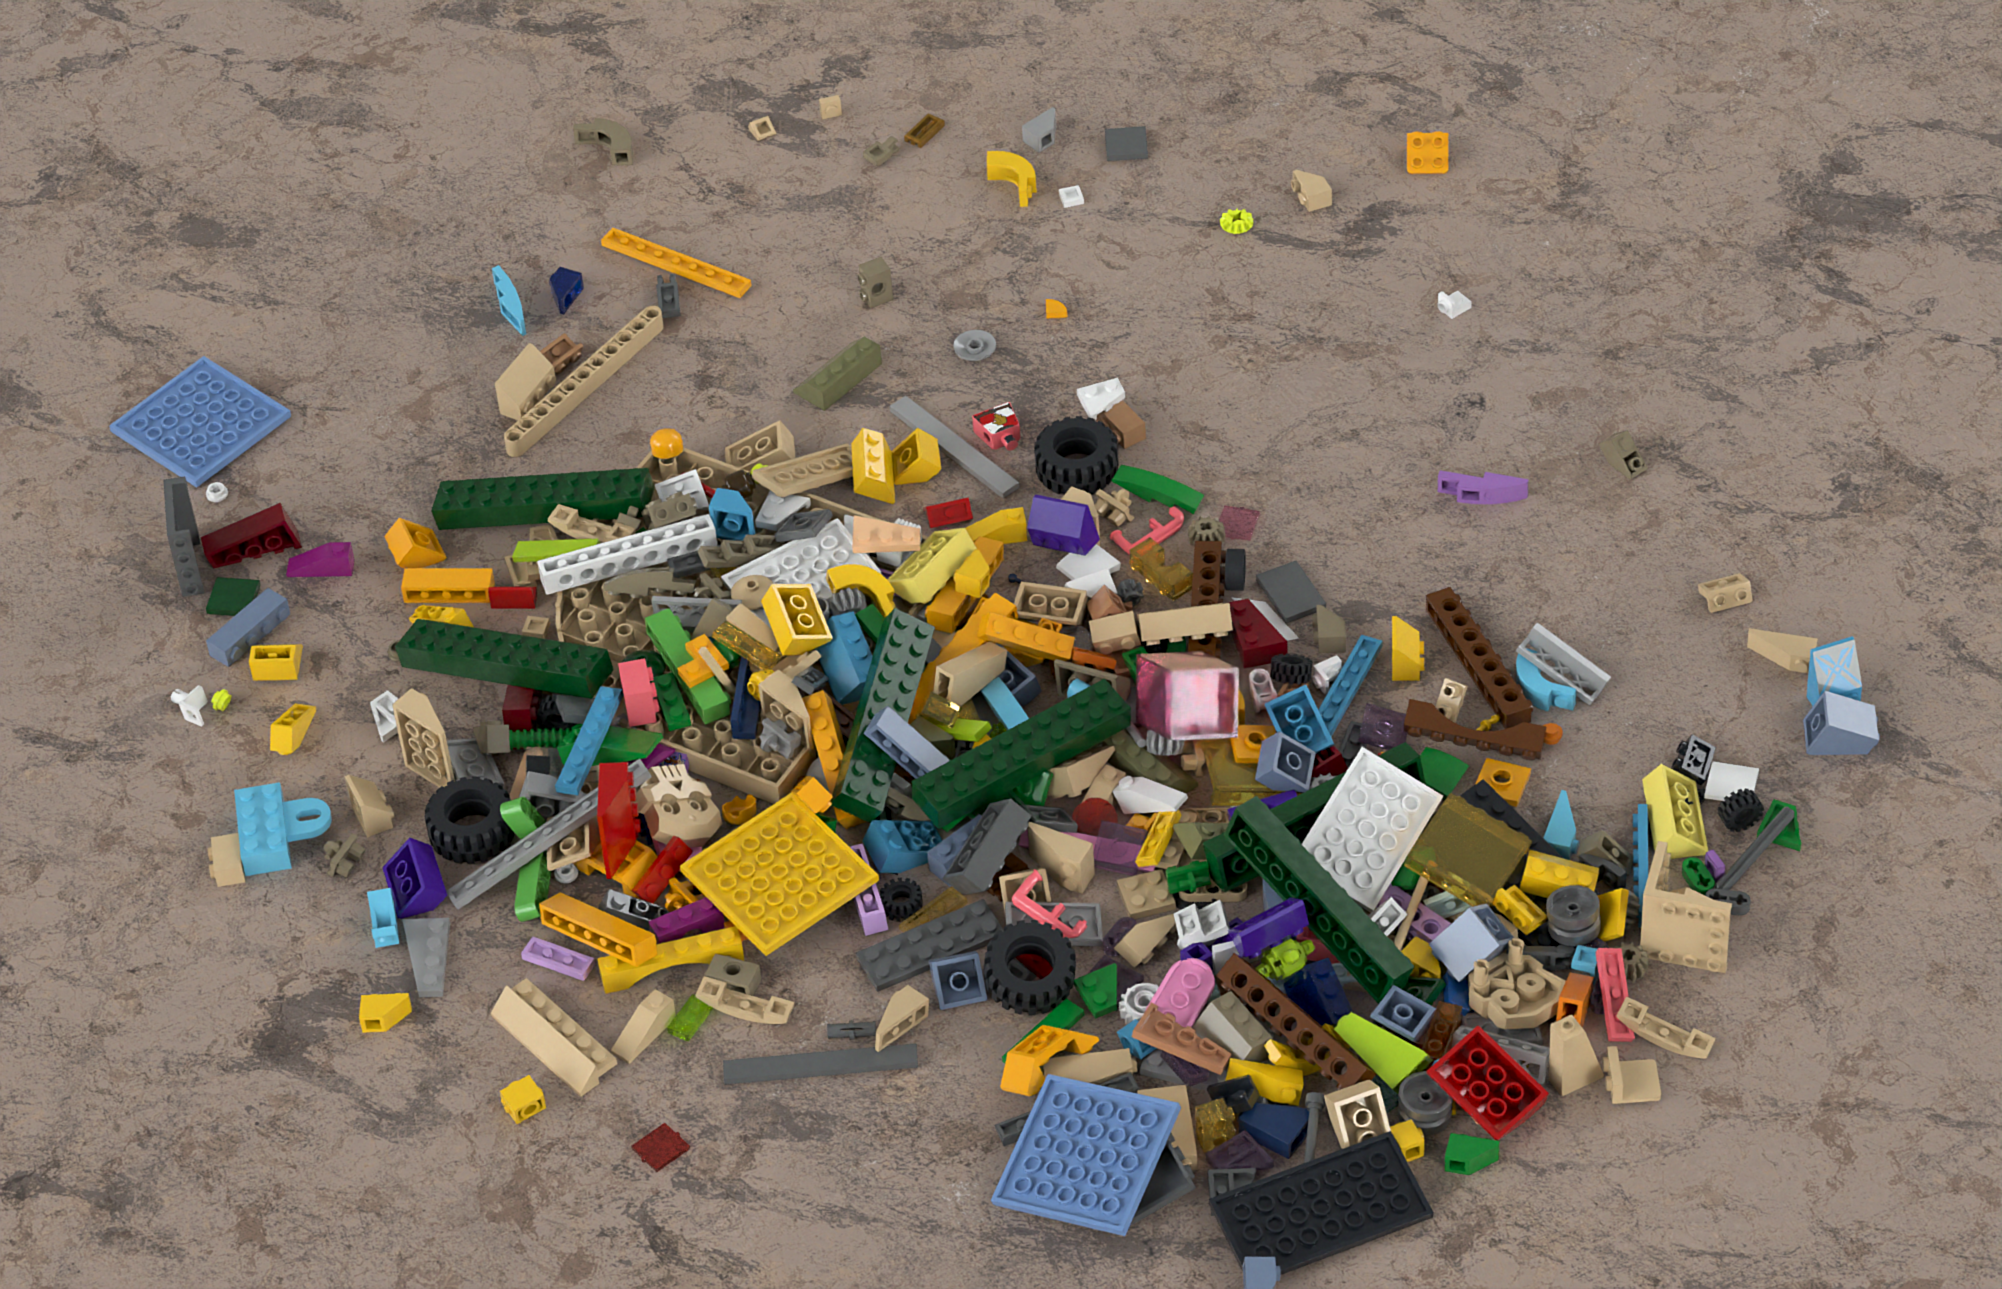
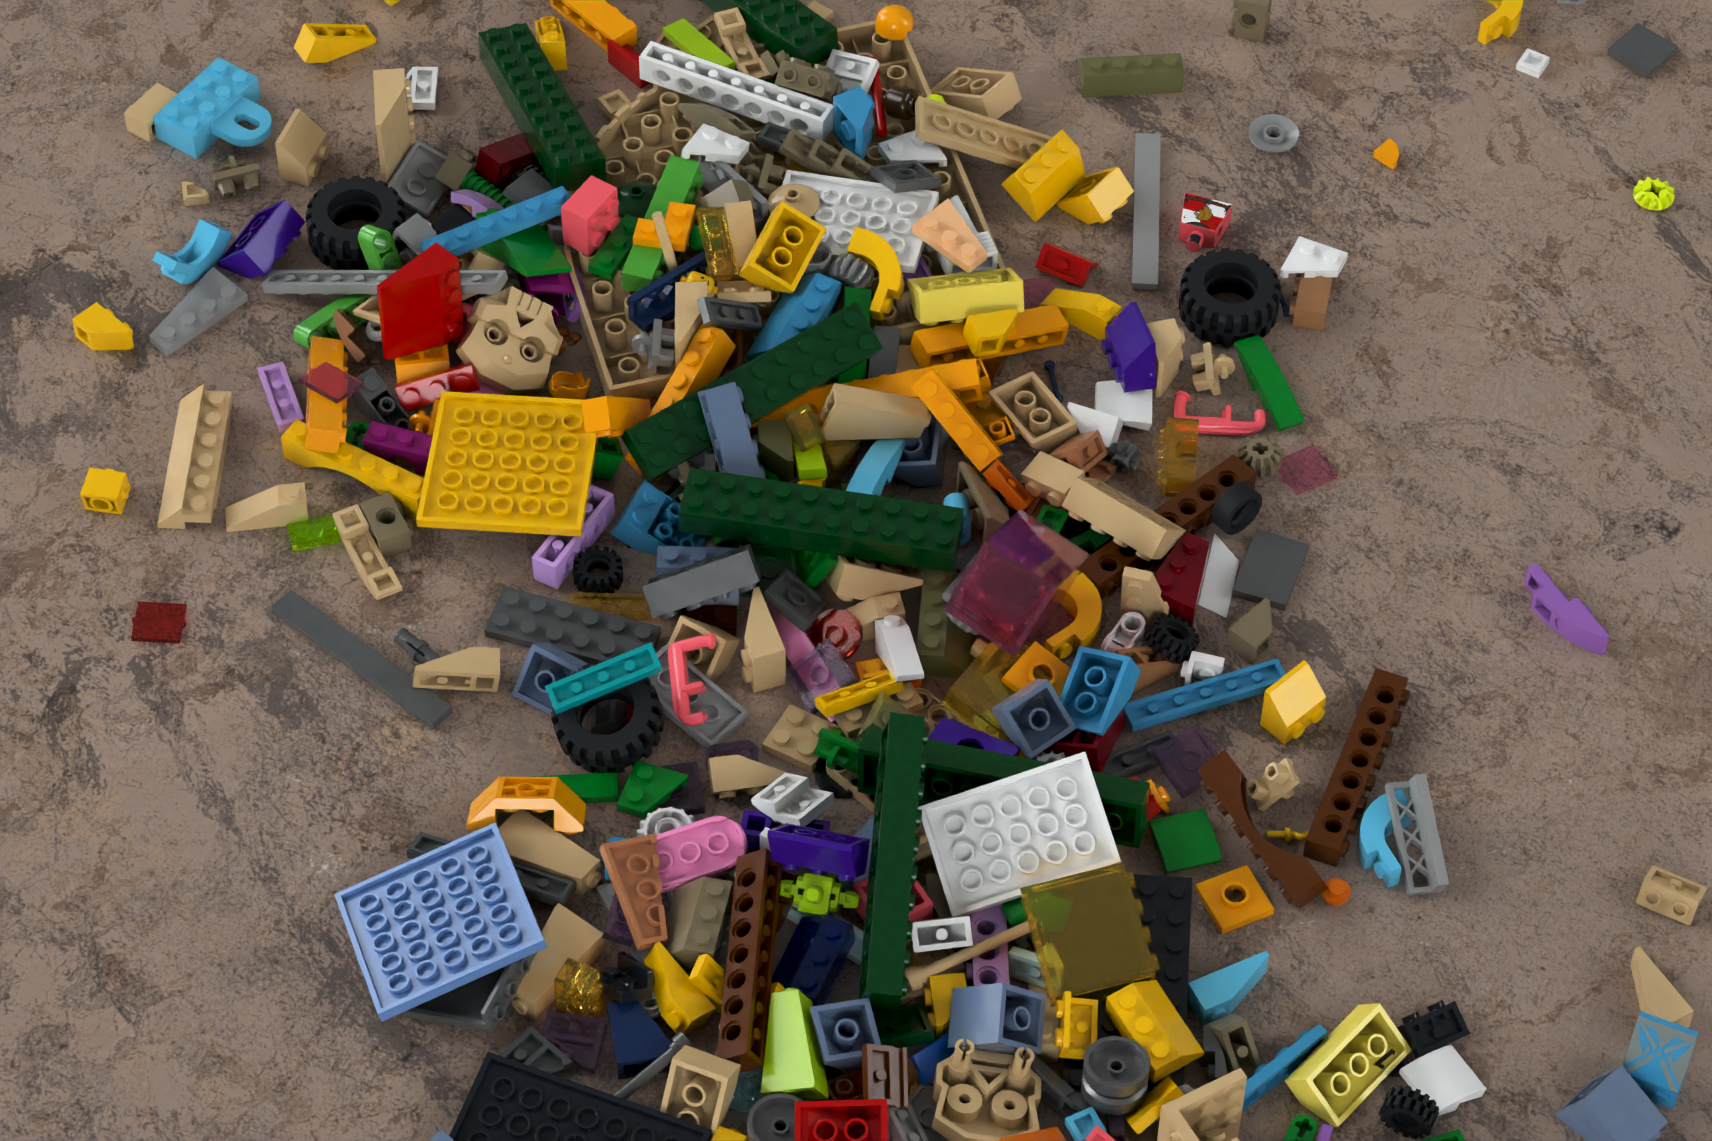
camera: 40 degrees right, 5 degrees up
(324, 889) = (194, 195): none -> tan tile
(547, 744) = (478, 201): none -> lavender slope
(557, 884) = (345, 328): none -> medium nougat slope
(600, 915) = (331, 382): none -> clear pink piece
(666, 591) = (716, 146): none -> white wing
(1015, 939) = (603, 678): none -> teal plate
(1252, 655) = (1141, 595): none -> tan wing
(1451, 1018) = (885, 1074): none -> plate

